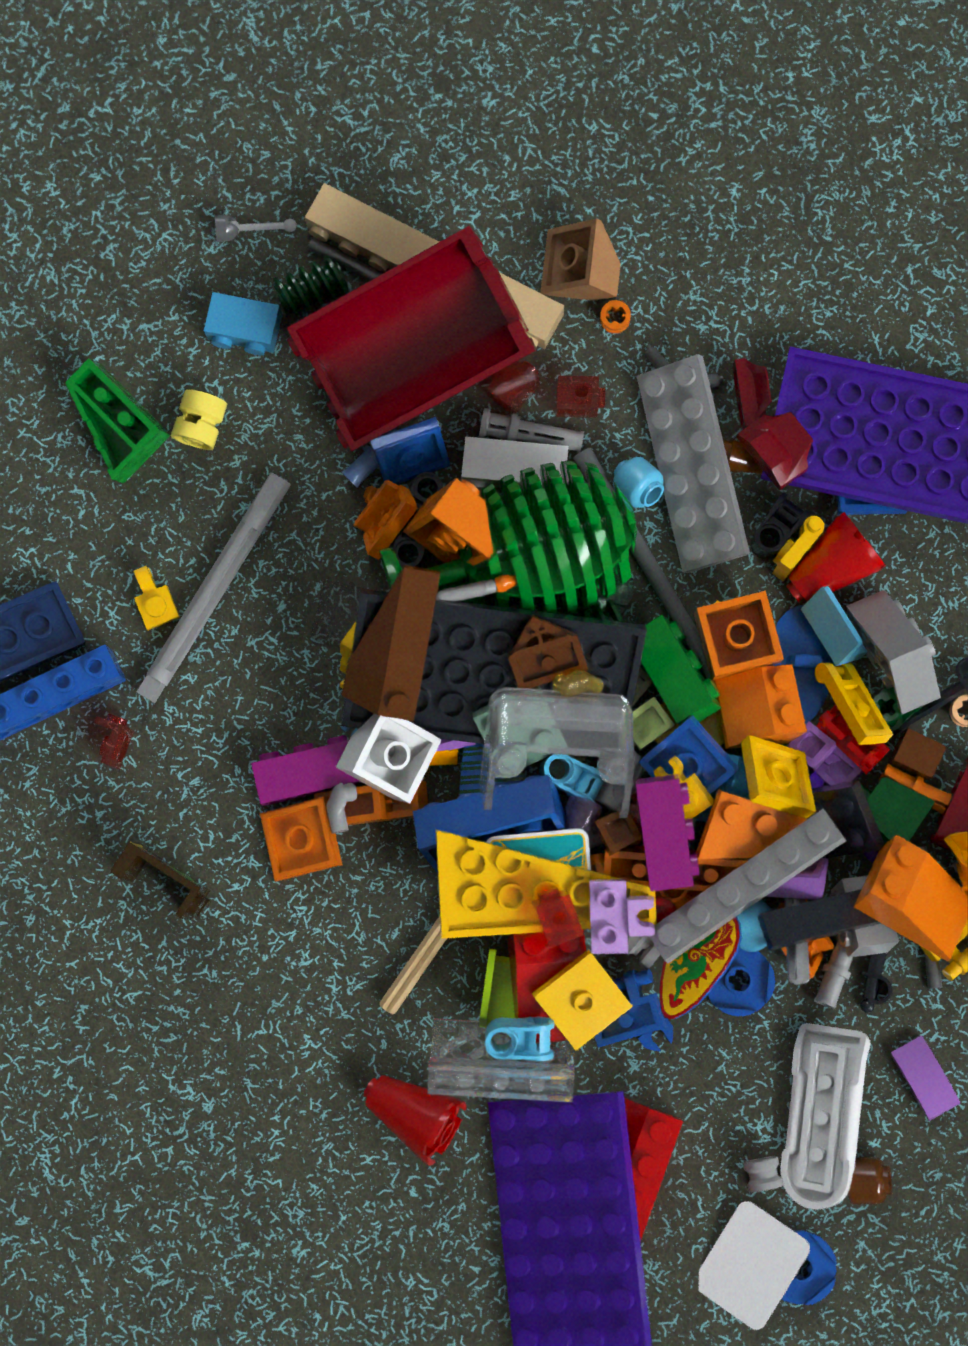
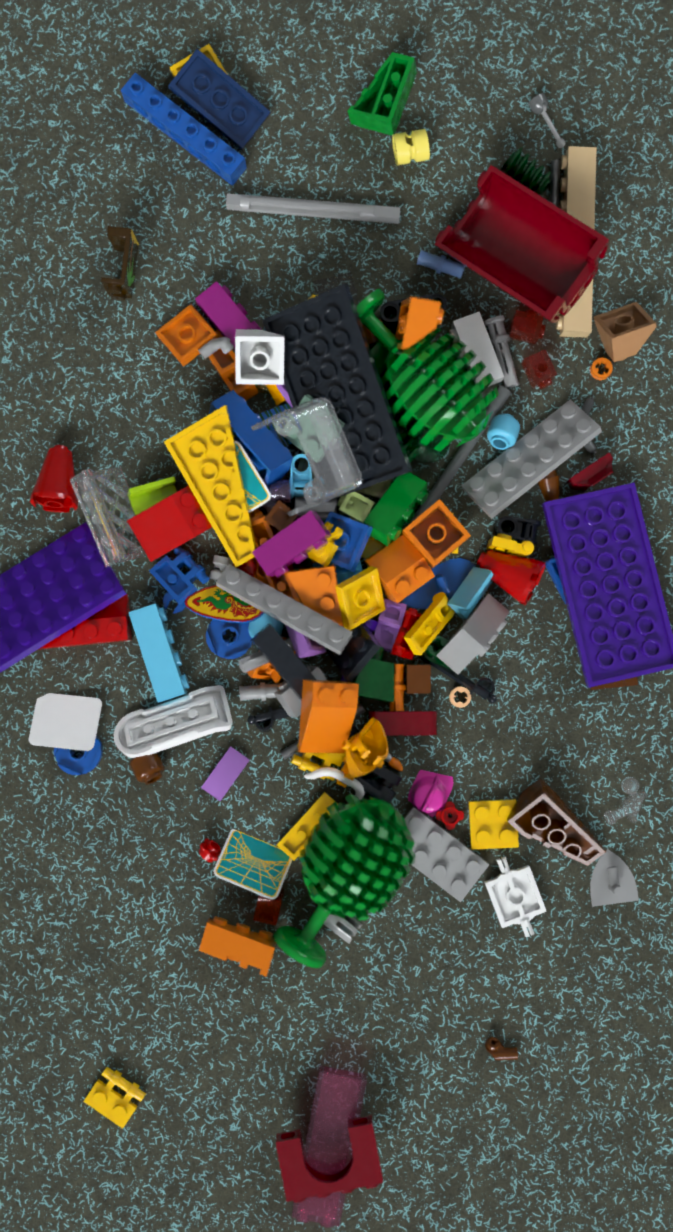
camera: 55 degrees right, 5 degrees up
(116, 745) = (191, 197): clear red bracket -> none
(155, 603) = (286, 178): yellow plate -> none
(242, 323) = (484, 143): dark azure brick -> none
(385, 515) = (407, 286): orange slope -> none
(390, 659) = (318, 322): reddish brown wedge -> none
(411, 451) = (453, 282): blue plate -> none
(413, 969) = (138, 440): tan axle -> none
(499, 584) = (392, 368): light grey piece -> none
(523, 1038) = (131, 522): medium azure piece -> none
(545, 652) = (363, 417): reddish brown slope -> none
(556, 916) = (208, 502): clear red brick -> none
(577, 683) = (355, 445): clear yellow arm -> none
(582, 1000) = (169, 545): yellow plate -> none
(616, 916) = (227, 539): lavender plate -> none
(718, 1089) = (158, 652): none -> medium azure brick
(763, 1174) = (121, 703): light grey wheel -> none
(778, 447) = (565, 503): dark red slope -> none

